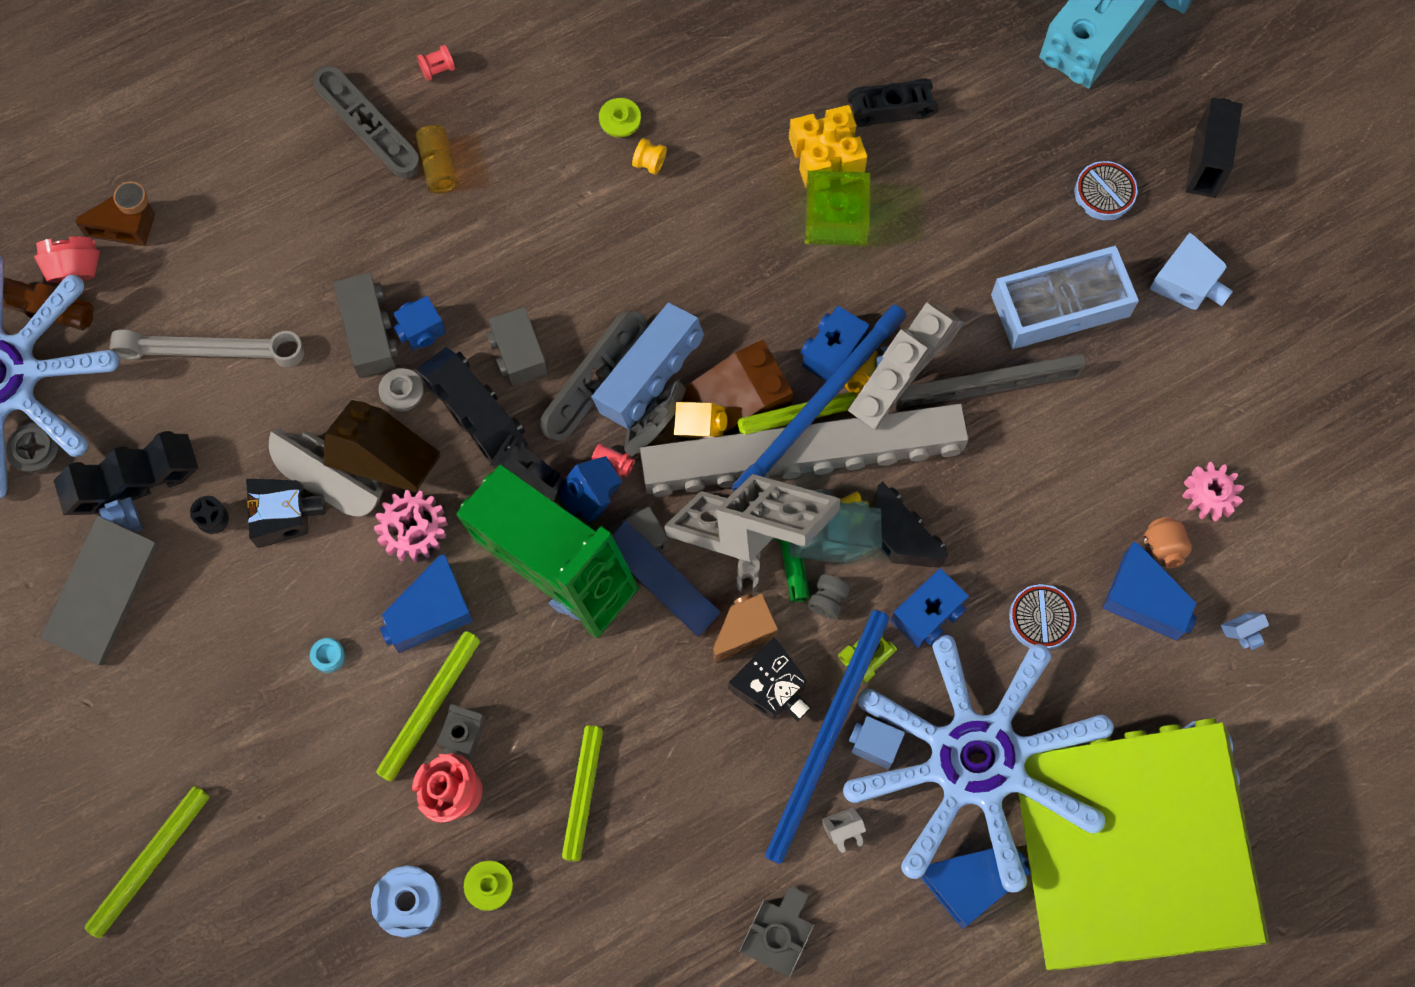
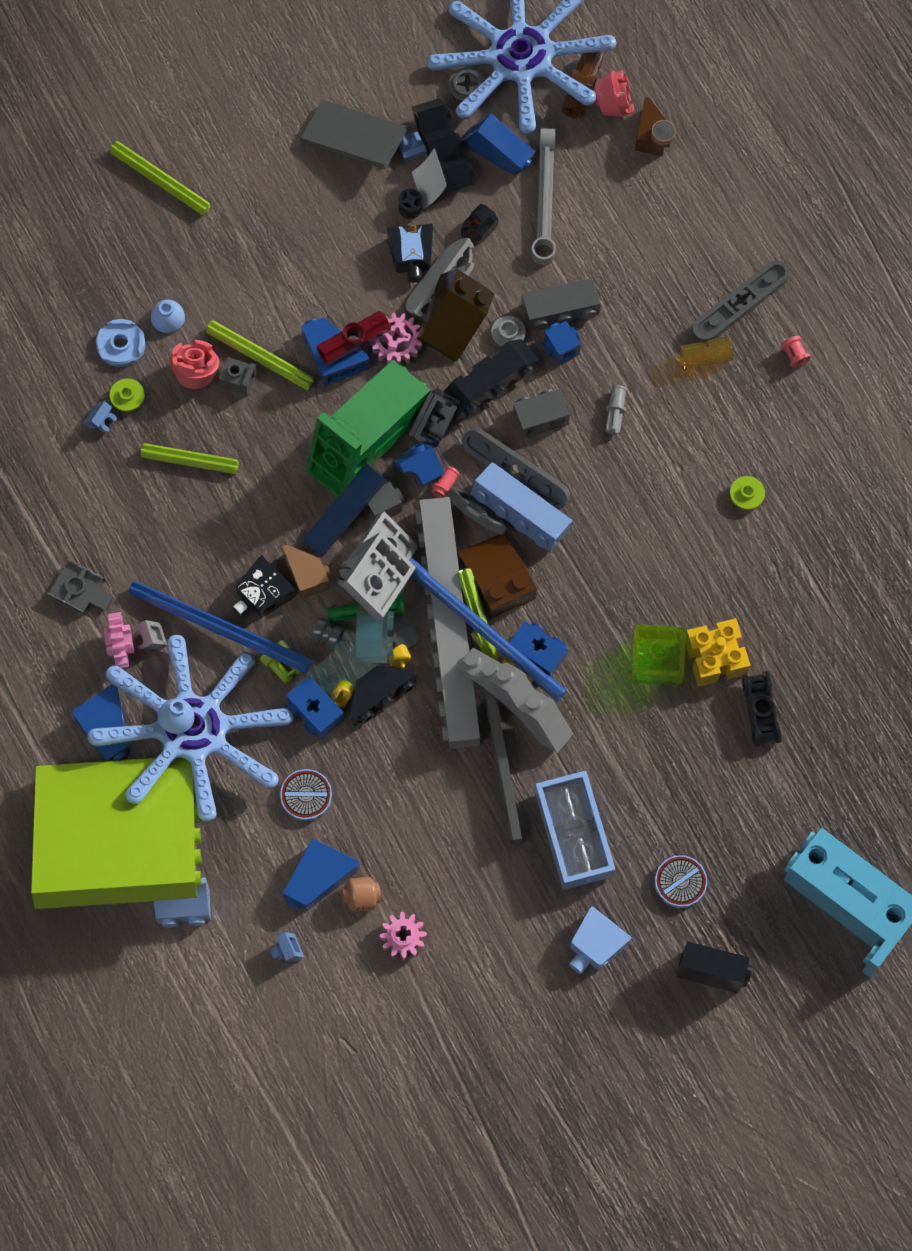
camera: 90 degrees right, 0 degrees up
(128, 403) = (498, 144): none -> blue slope
(175, 486) = (429, 179): none -> white sticker
(245, 427) = (479, 224): none -> black rock
(327, 655) = (301, 287): medium azure tile -> none
(366, 837) = (167, 316): none -> light blue brick
(427, 585) = (365, 330): none -> dark red piece
(510, 262) = (615, 409): none -> light grey axle
(522, 923) = (98, 415): none -> medium blue tile
(649, 156) = (709, 513): yellow wheel -> none
(700, 420) = (472, 542): yellow brick -> none
(861, 866) = (118, 640): none -> bright pink gear
(876, 742) = (212, 662): medium blue brick -> none
(906, 577) = (342, 693): none -> yellow piece
(975, 774) = (176, 716): none -> light blue brick

